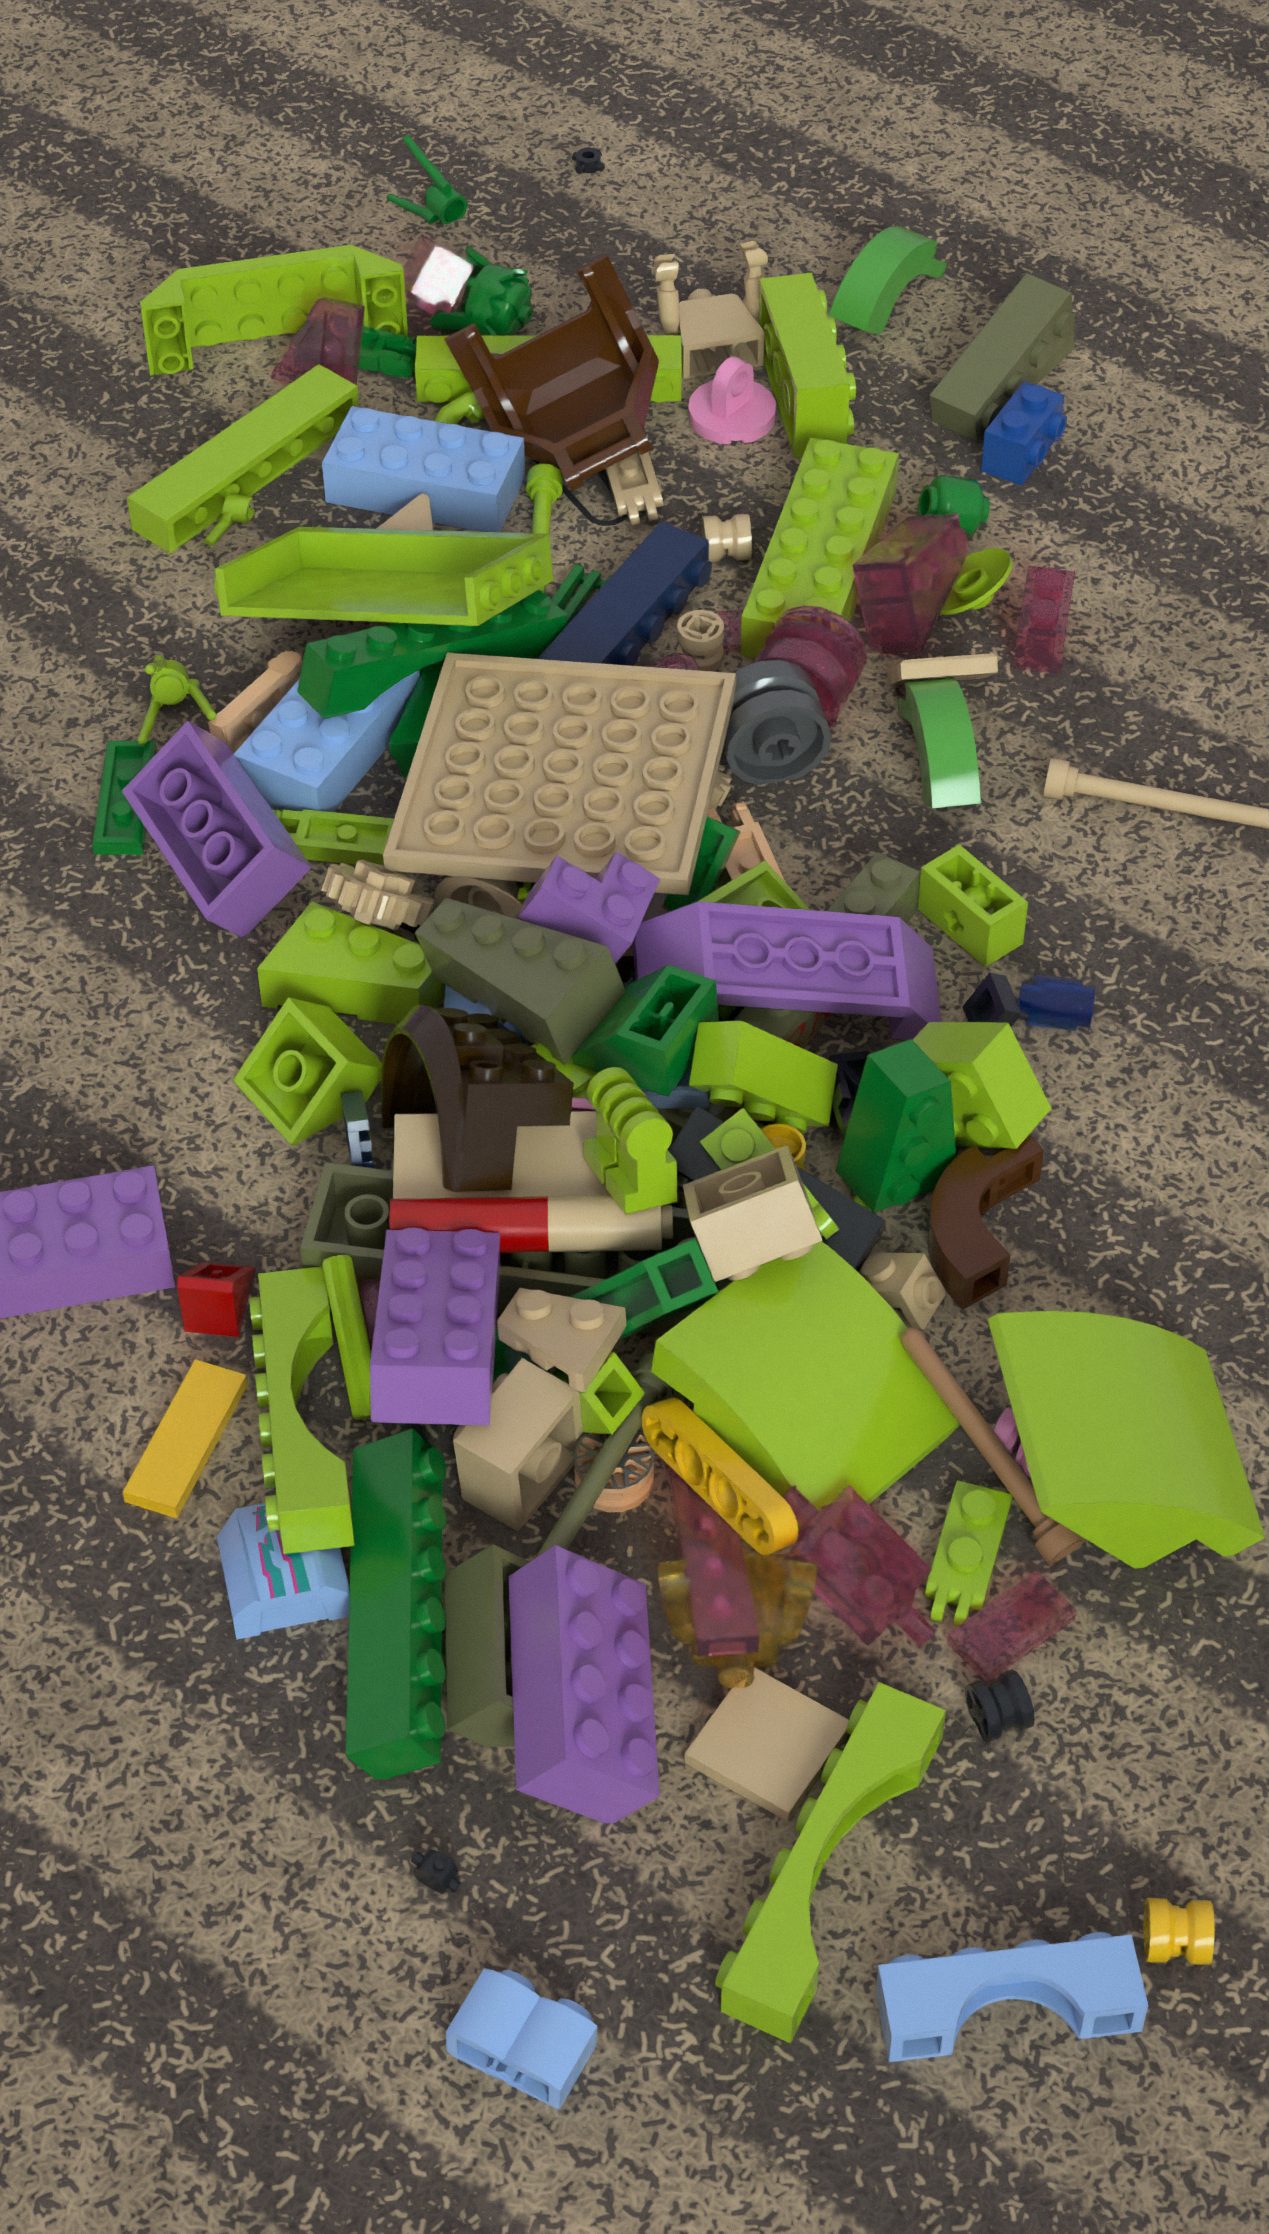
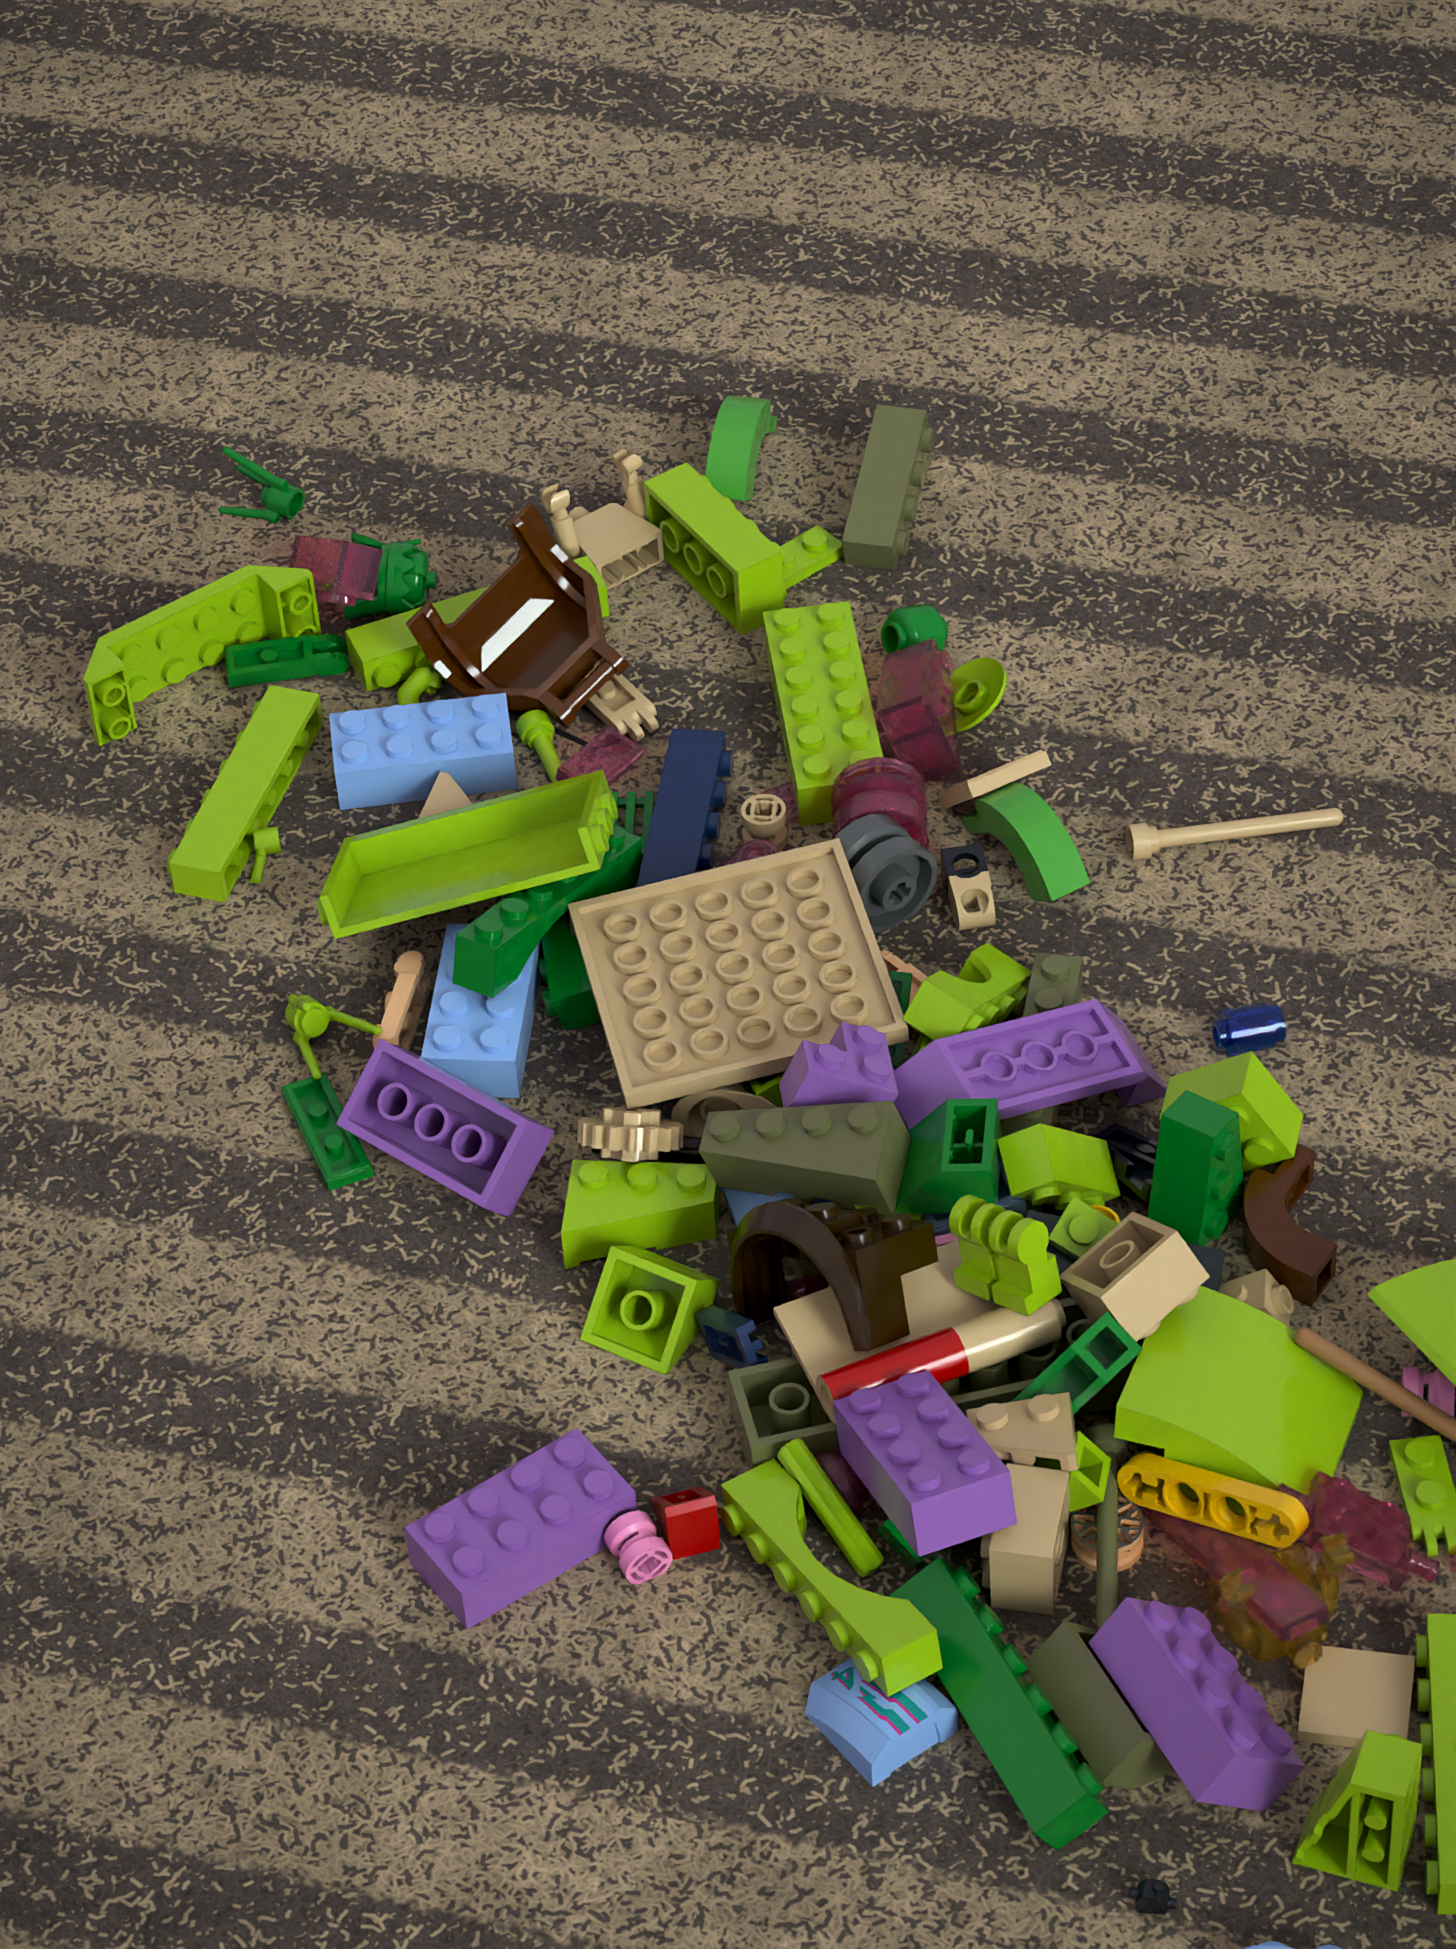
camera: 20 degrees left, 5 degrees down
(154, 1314) = (635, 1543): none -> bright pink wheel
(185, 1438) = (730, 1644): yellow tile -> none
(328, 339) = (264, 659): clear pink wing -> none
(337, 835) = (556, 1096): lime hinge -> none
(585, 534) = (606, 752): none -> clear pink tile
(588, 160) = (389, 419): black piece -> none
(688, 1879) = (1366, 1813): none -> lime wedge
(728, 537) = (737, 721): tan wheel -> none
(732, 405) = (663, 606): bright pink tile -> none
(805, 877) = (977, 998): none -> lime arch
(859, 768) = (968, 888): none -> tan leg
(891, 402) = (809, 554): none -> lime plate
(972, 905) = (1136, 971): lime brick -> none
(993, 1002) = (1198, 1047): black plate -> none
(1023, 433) = (939, 549): blue brick -> none
(1044, 619) = (1053, 707): clear pink brick -> none

